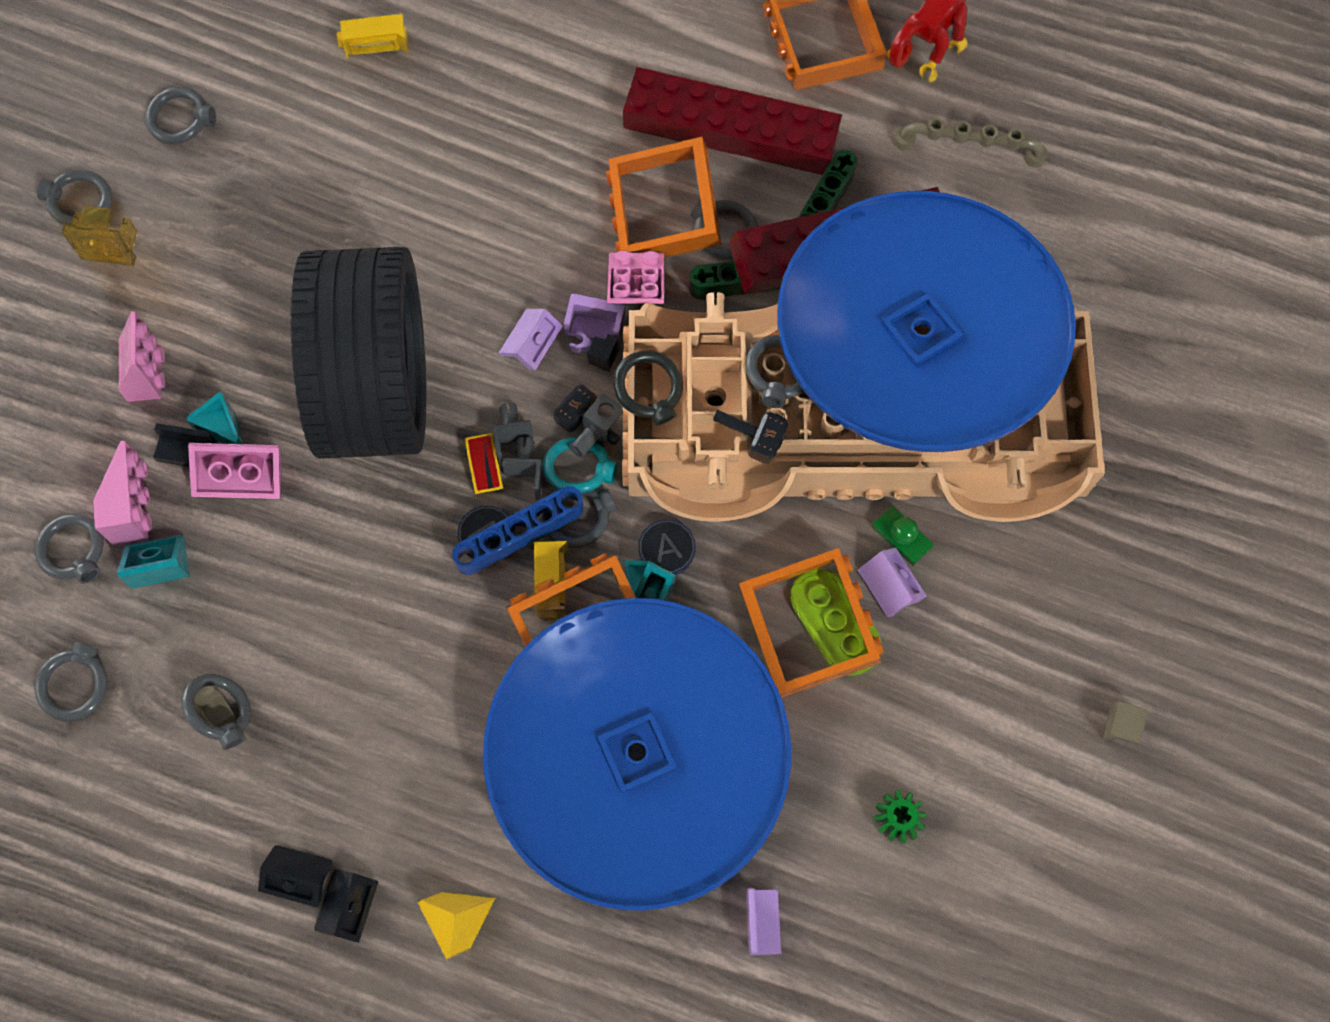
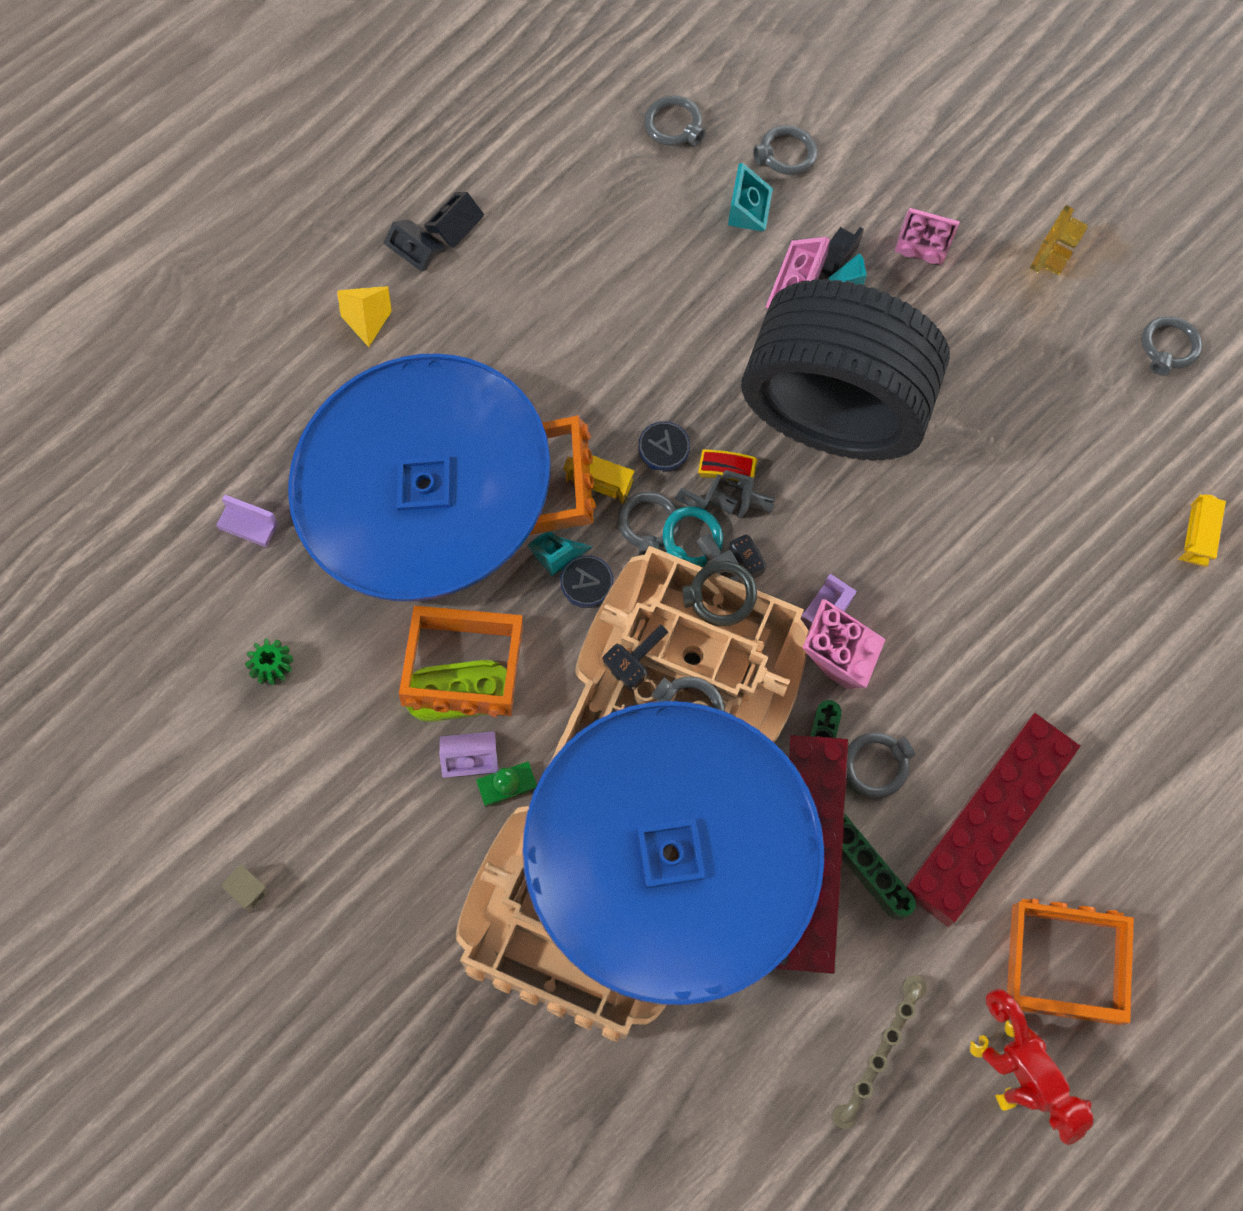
camera: 110 degrees right, 0 degrees up
(51, 192) = (1125, 225): dark grey piece -> none
(122, 499) = (809, 190): bright pink slope -> none
(213, 707) = (607, 201): dark tan panel -> none
(229, 734) = (579, 202): dark grey piece -> none
(511, 543) = (650, 475): blue beam -> none
(531, 337) = (830, 548): lavender panel -> none
(599, 351) = (797, 596): black piece -> none
(656, 157) = (912, 748): orange window -> none

